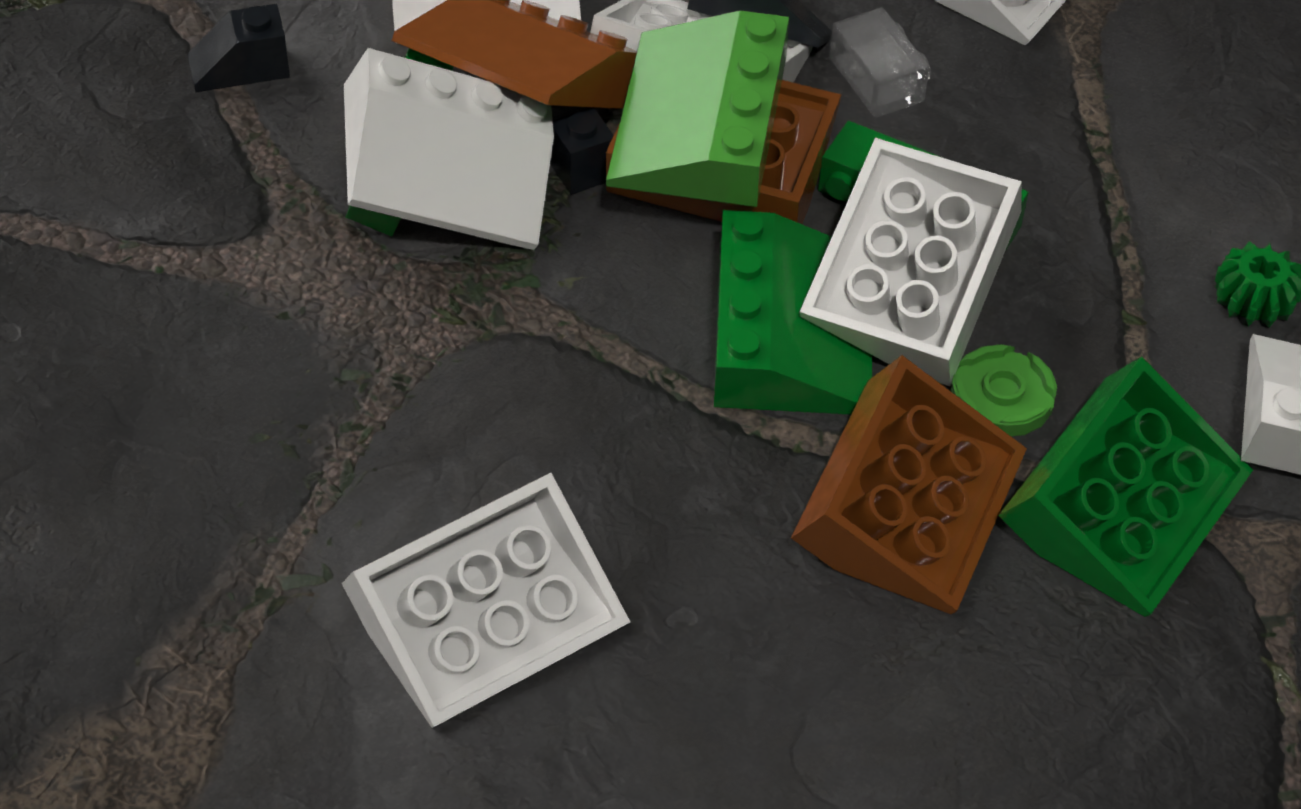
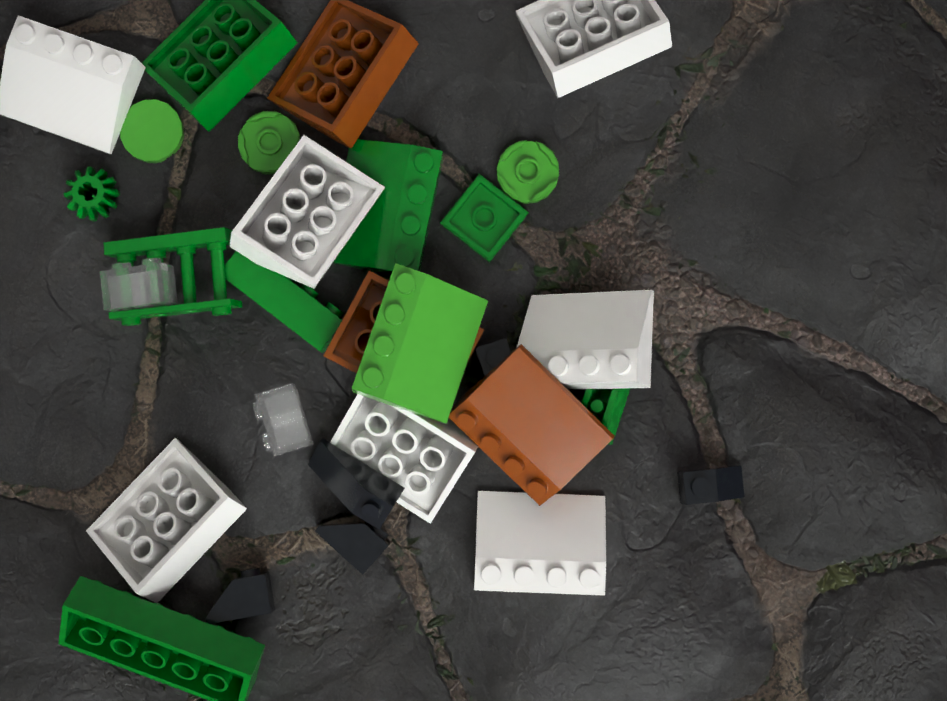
camera: 175 degrees left, 35 degrees up
(569, 397) = (527, 171): none -> bright green tile
(630, 330) = (484, 218): none -> green tile
(1096, 221) = (185, 246): none -> green fence
(1140, 148) = (138, 286): none -> clear brick
(1205, 376) = (152, 131): none -> bright green tile

